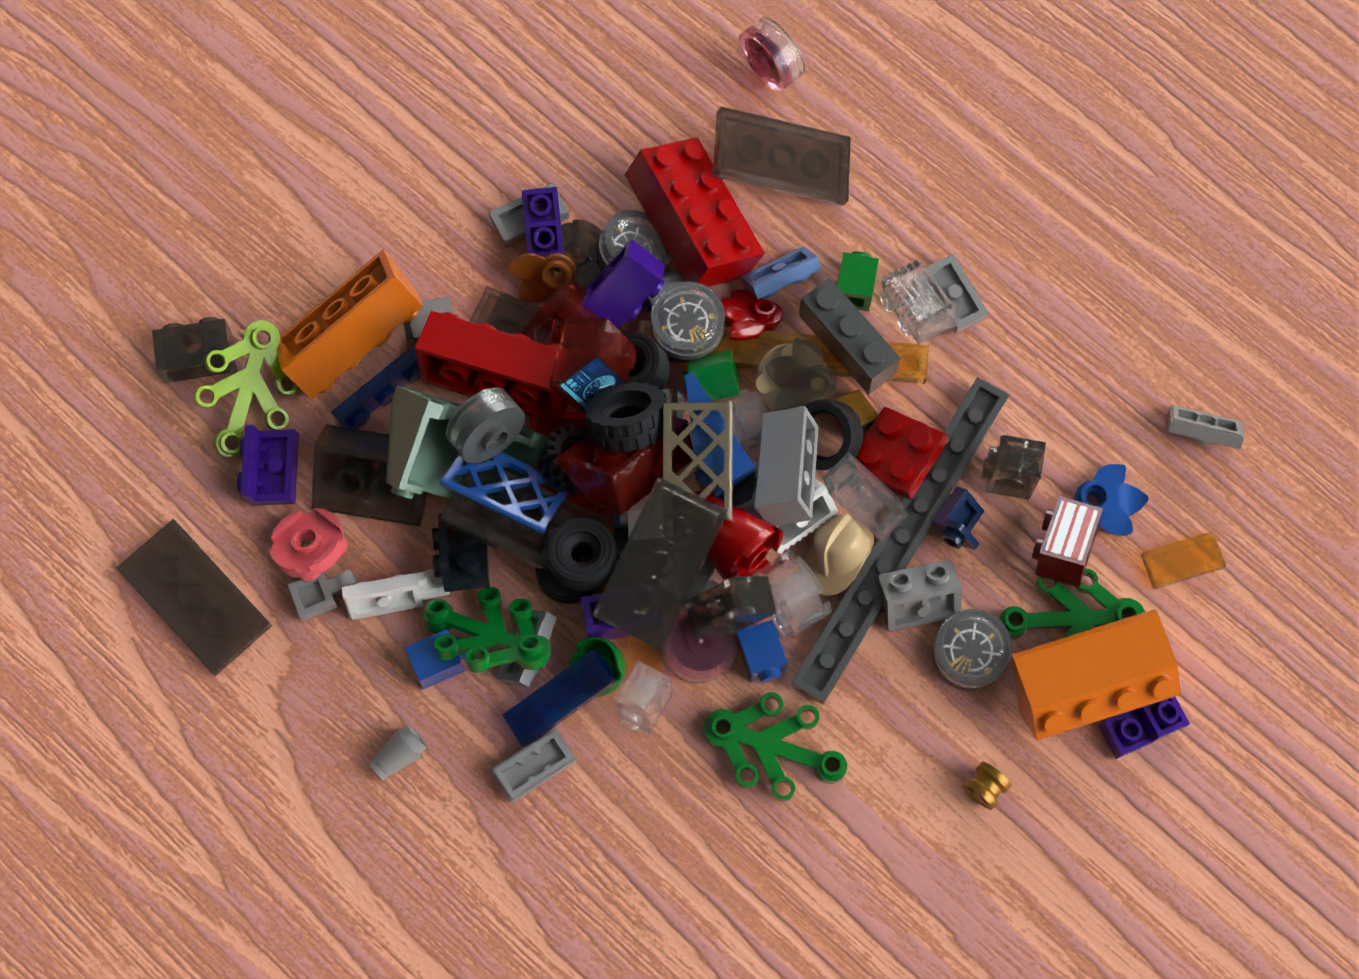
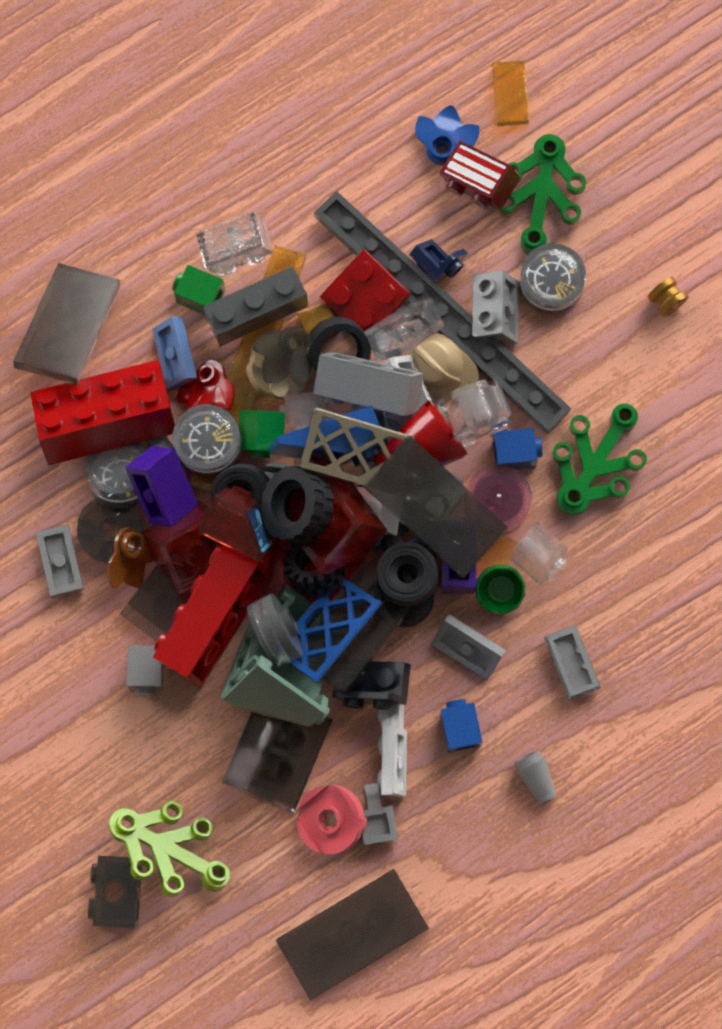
camera: 75 degrees left, 5 degrees up
(268, 466) = (248, 842): dark purple bracket -> none
(347, 325) = (132, 742): orange slope -> none
(378, 391) = (199, 727): clear blue plate -> none
(528, 650) = (455, 673): green plant -> none
(542, 221) = (76, 548): dark purple slope -> none
(559, 698) = (522, 626): clear blue plate -> none
(730, 606) = (485, 458): clear smoke brick -> none
(960, 292) = (228, 207): light grey plate -> none
(1013, 466) = (406, 201): clear smoke brick -> none
(1095, 675) = (600, 185): orange slope -> none
(1143, 726) = (641, 161): dark purple slope -> none
(1205, 427) = (402, 42): light grey plate -> none

